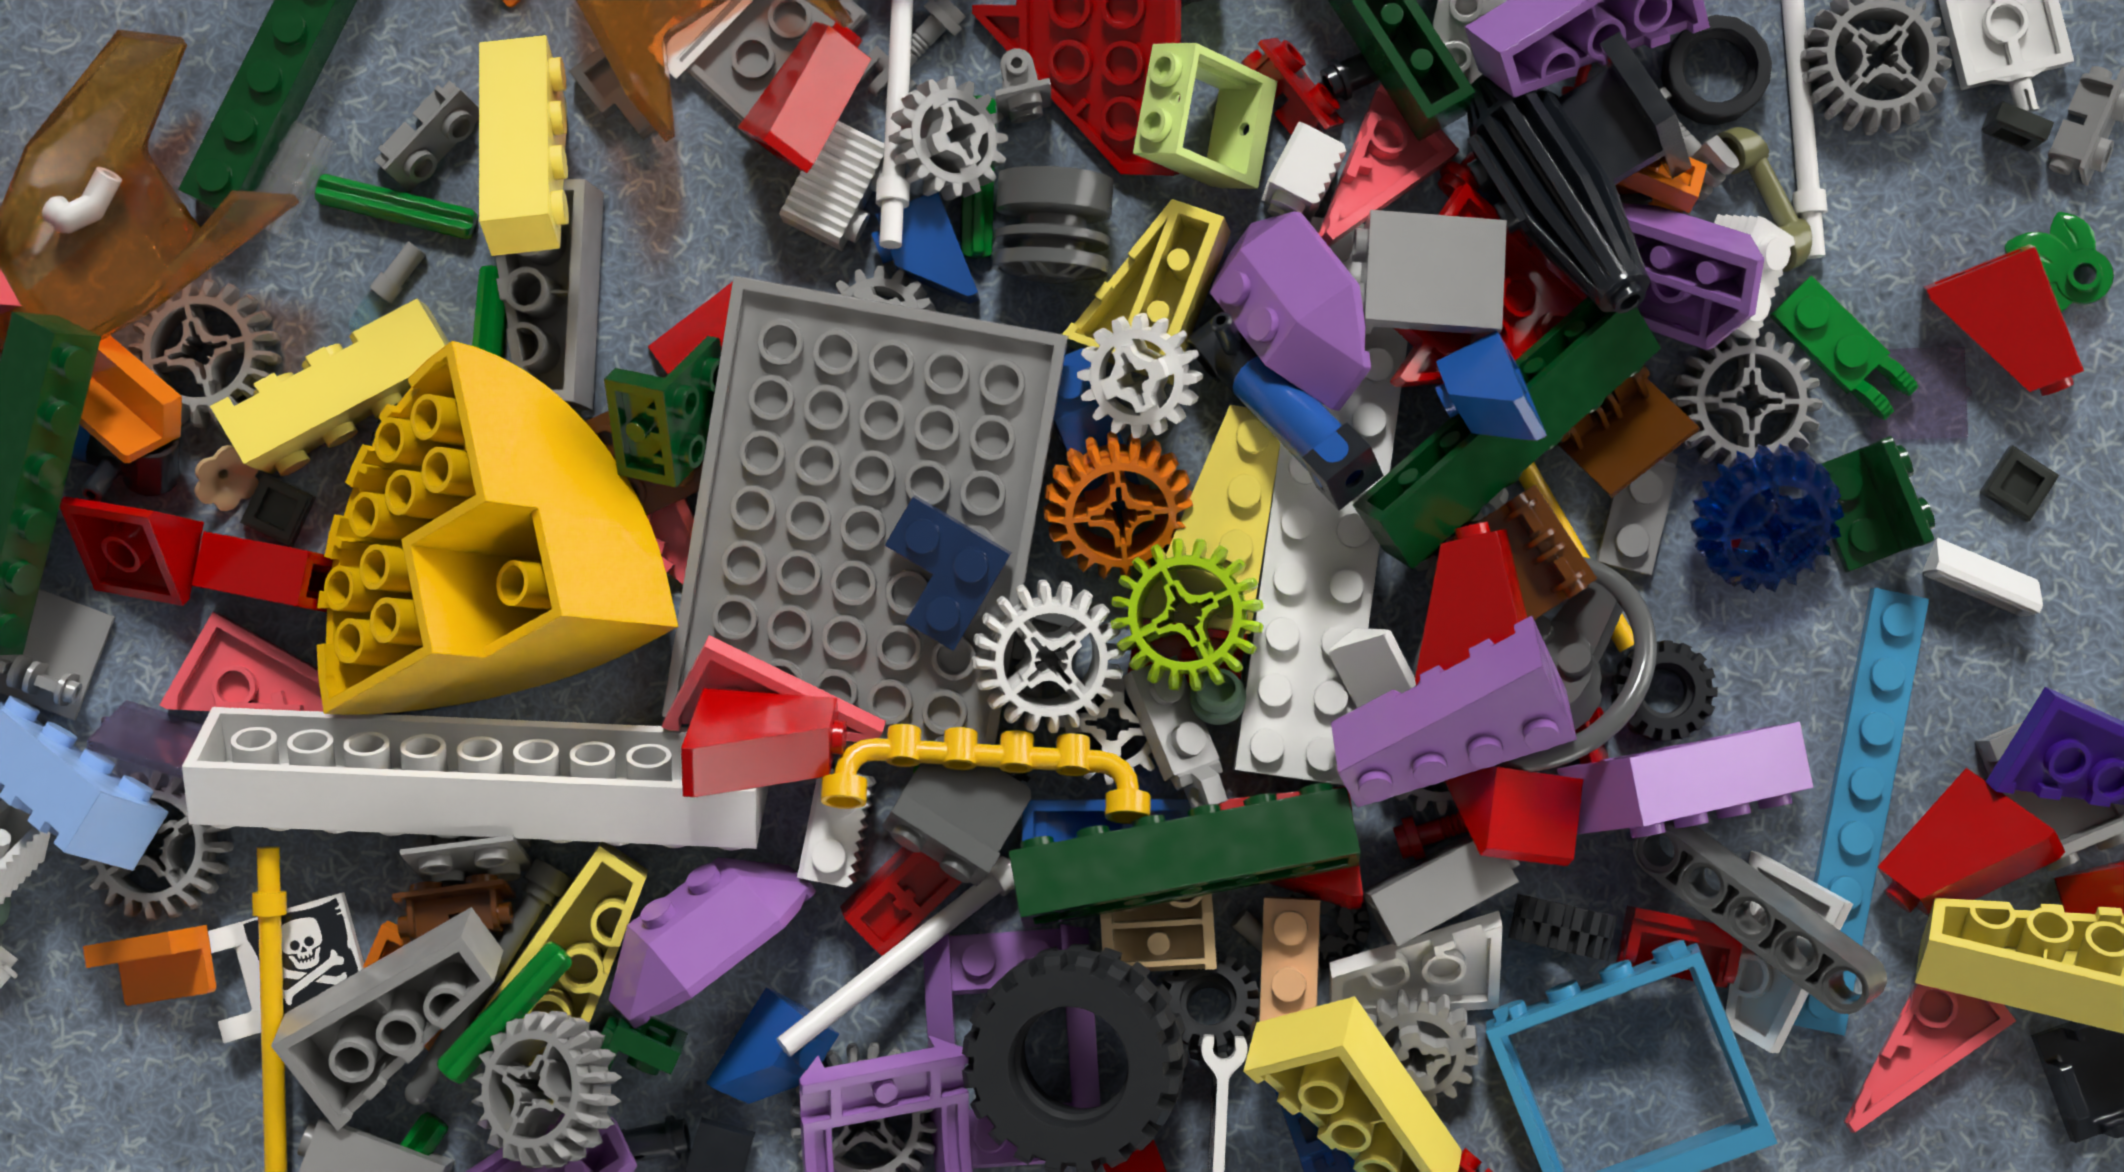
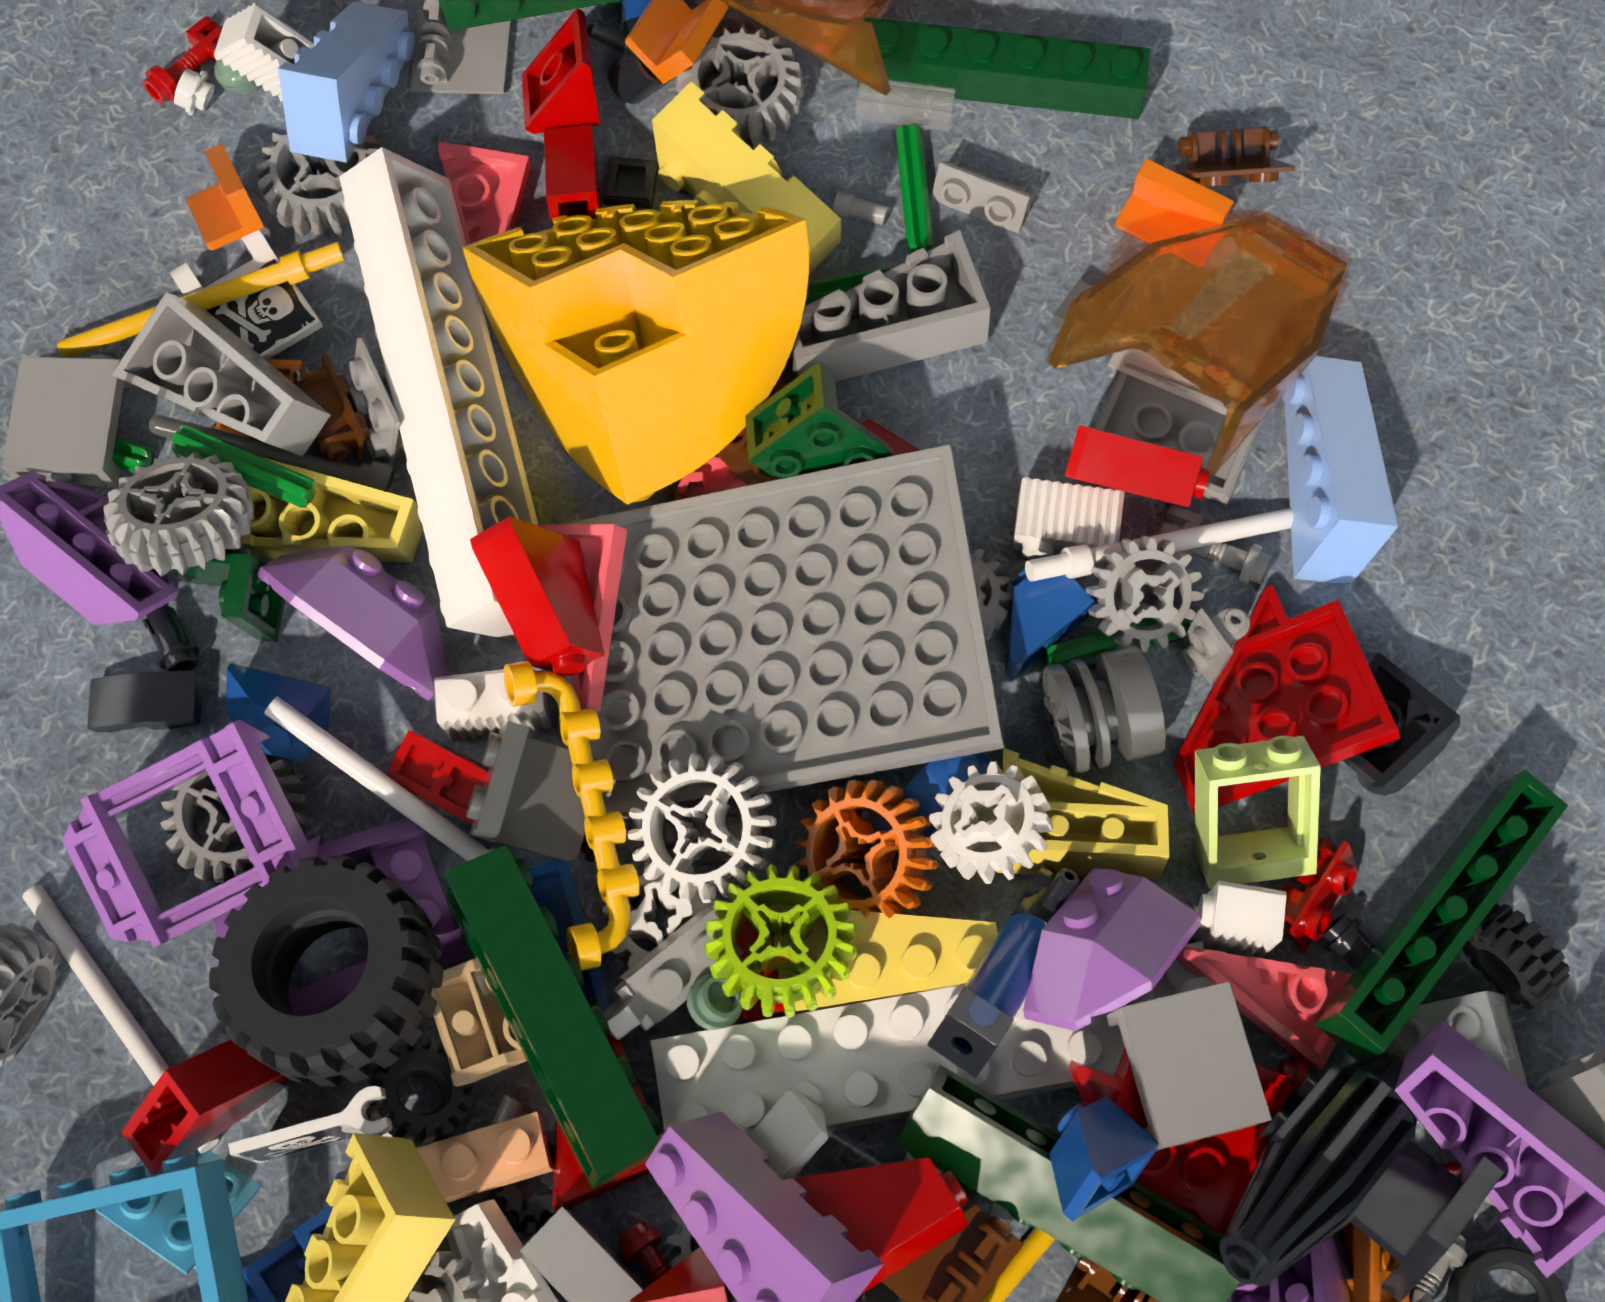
camera: 70 degrees right, 15 degrees down
(146, 737) = (407, 129): clear purple piece -> none
(224, 479) = (634, 132): tan plant -> none
(522, 145) = (997, 242): light yellow wedge -> none
(961, 566) = (762, 723): dark blue plate -> none

